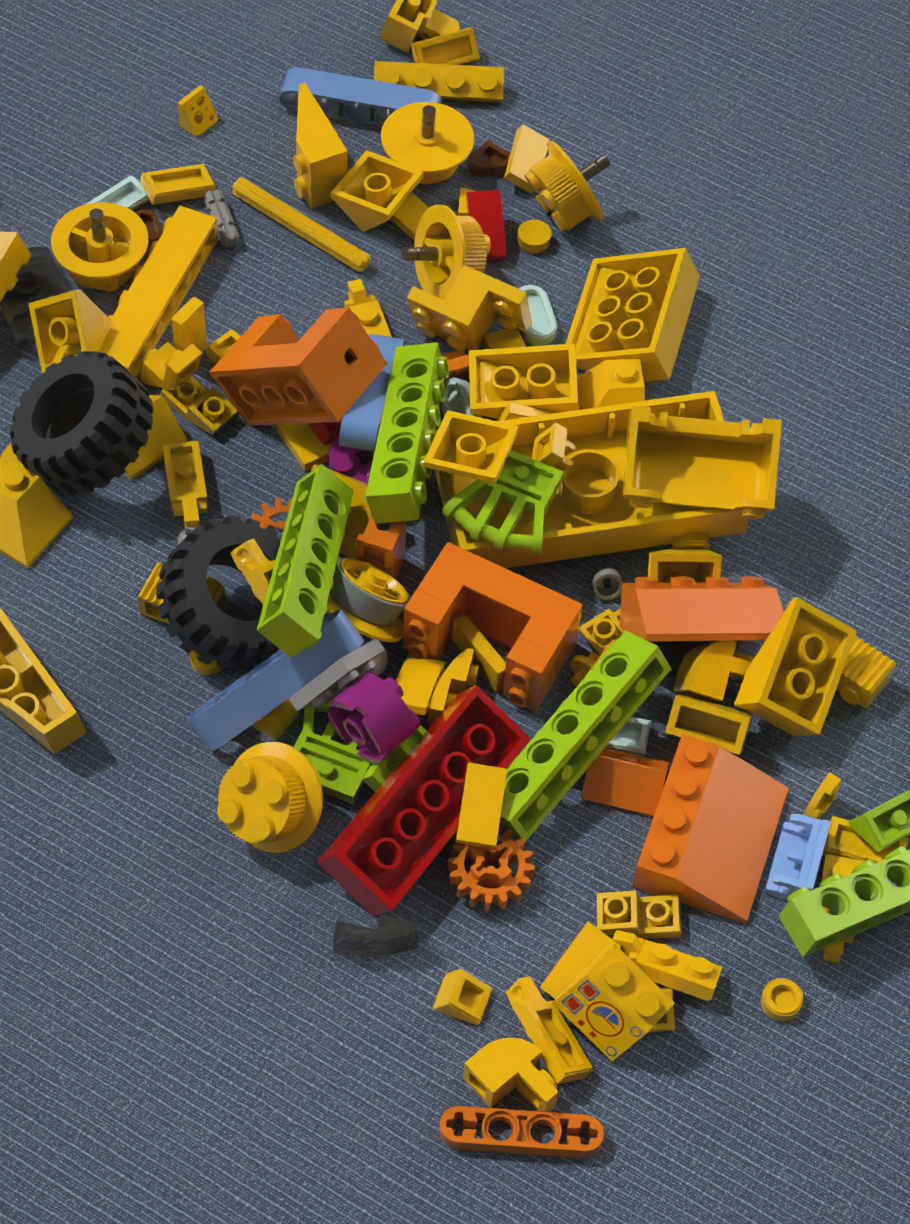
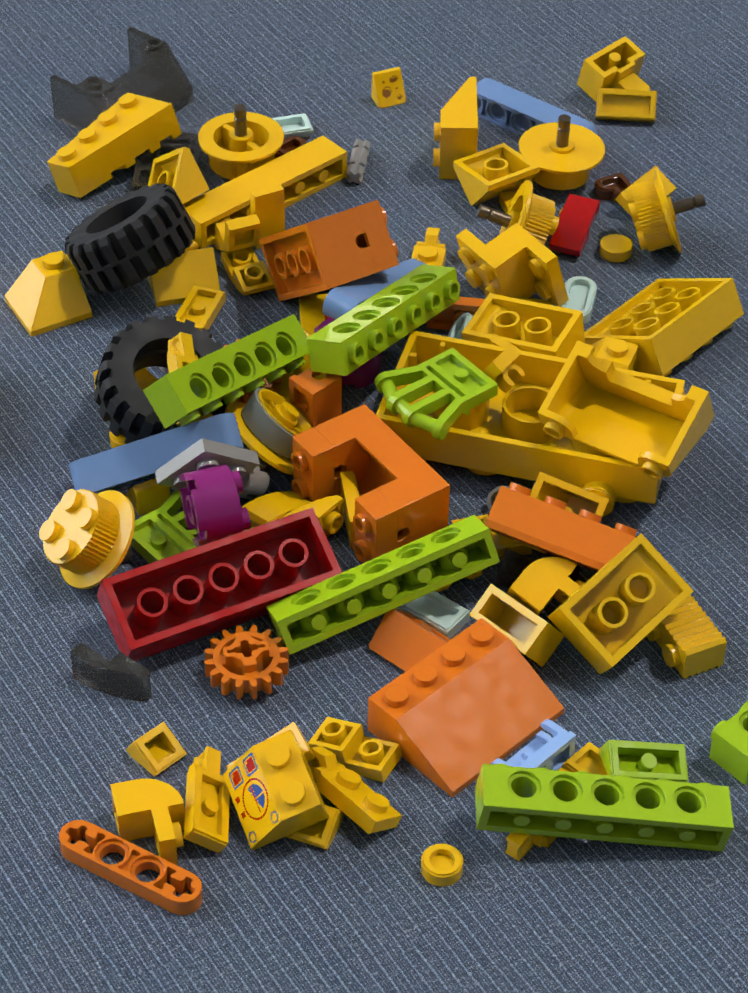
camera: 30 degrees right, 15 degrees down
(177, 184) = (337, 127): yellow tile -> none
(301, 224) = (421, 184): yellow axle -> none
(446, 80) = (616, 125): yellow plate -> none
(471, 446) = (419, 333): yellow slope -> none
(481, 805) = (259, 600): yellow tile -> none
(823, 797) = (590, 722): yellow tile -> none

